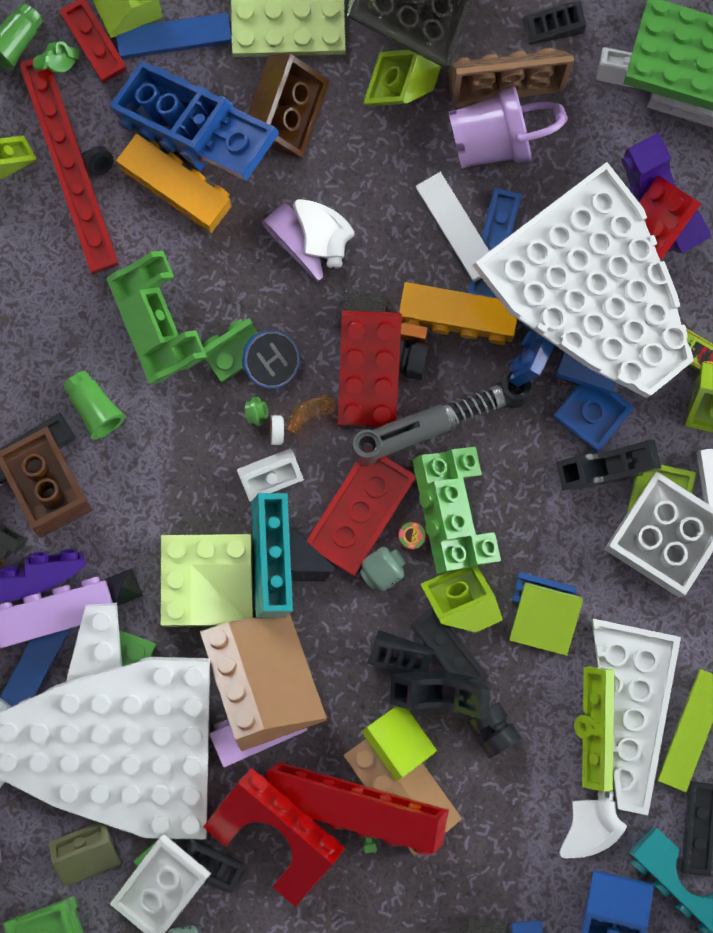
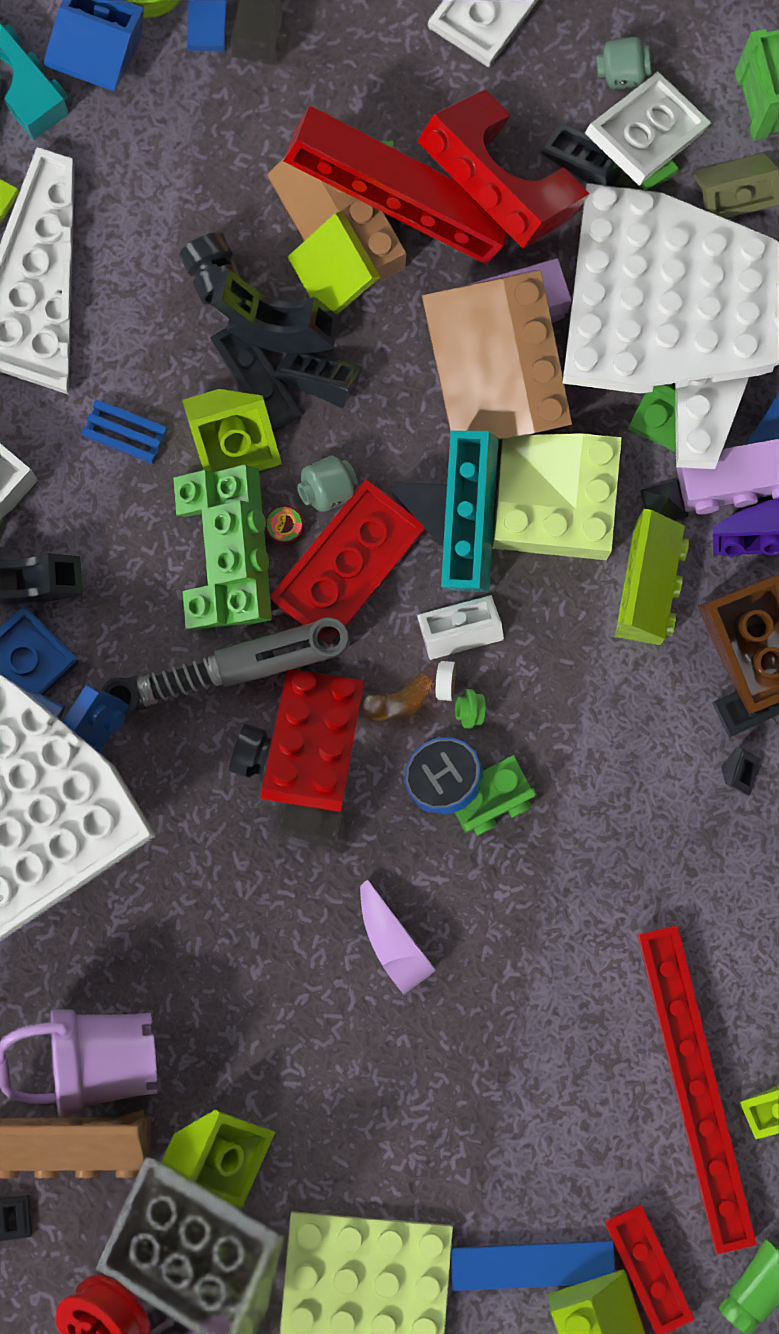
camera: 175 degrees left, 0 degrees up
(51, 388) = (741, 770): none -> black slope
(56, 58) = (702, 1244): bright green piece -> none
(93, 405) = (687, 741): bright green plant -> none
(98, 160) = (656, 1087): black tile -> none
(128, 520) = (652, 579): none -> lime slope
(149, 321) = (601, 842): bright green bracket -> none
(174, 183) = (552, 1040): light orange brick -> none
(192, 121) = (518, 1114): blue wedge -> none
(289, 100) = (385, 1138): reddish brown slope -> none
(323, 231) = (352, 945): white arm -> none
(413, 332) = (246, 790): orange tile -> none
(453, 222) = (168, 933): white tile -> none
(457, 312) = (194, 813): light orange brick -> none
(497, 228) = (119, 910): blue tile -> none
(546, 618) = (126, 397): lime tile -> none
(592, 827) = (106, 146): white arm -> none
(597, 728) = (82, 254): lime hinge -> none

